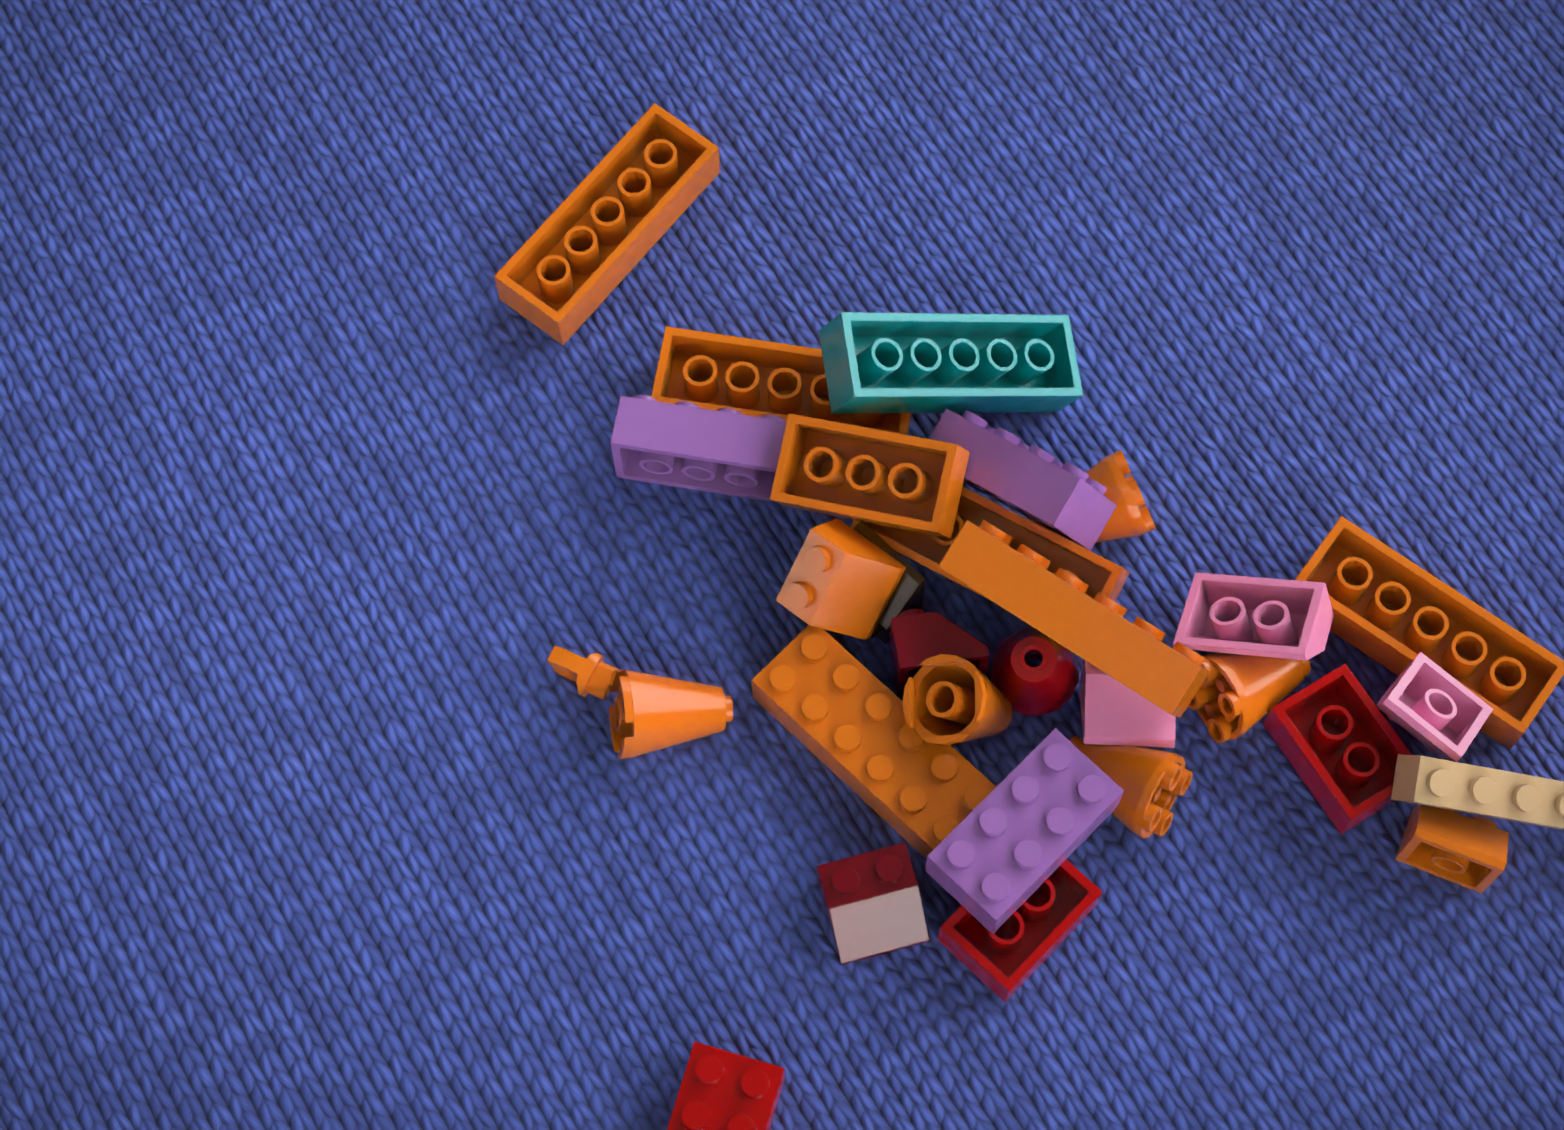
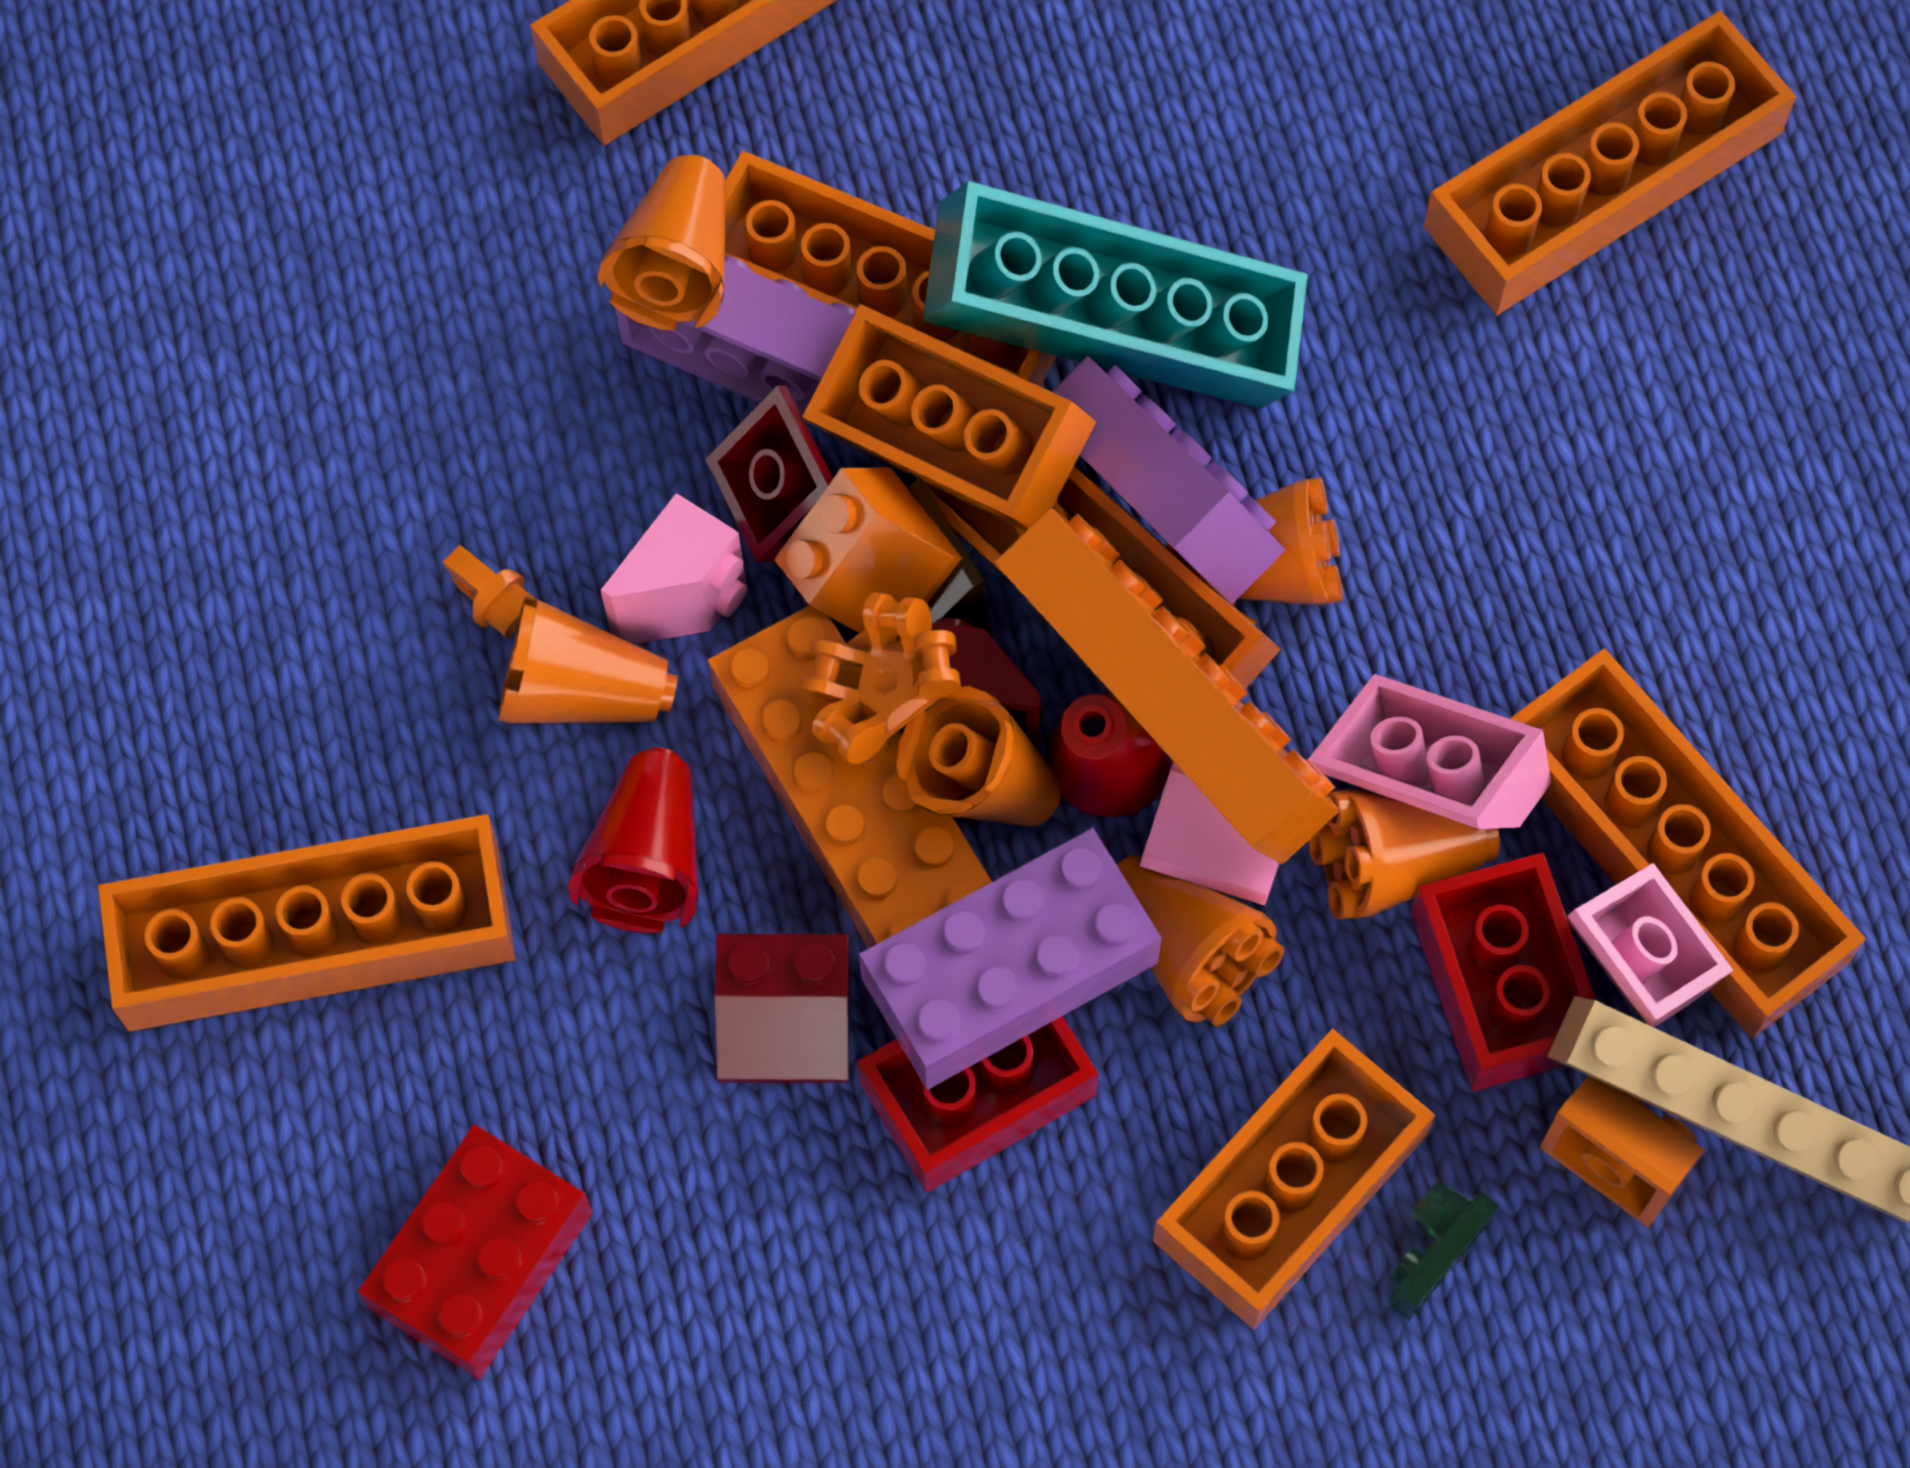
camera: 15 degrees right, 0 degrees up
(533, 933) = (305, 923): none -> orange brick
(649, 407) = (671, 249): none -> orange cone
(712, 628) = (676, 577): none -> bright pink slope
(745, 819) = (642, 848): none -> red cone
(756, 543) = (770, 473): none -> dark red slope
(885, 662) = (893, 678): none -> orange piece
(1236, 189) = (1608, 162): none -> orange brick
(1248, 926) = (1292, 1178): none -> orange brick
(1360, 928) = (1454, 1226): none -> clear green hinge

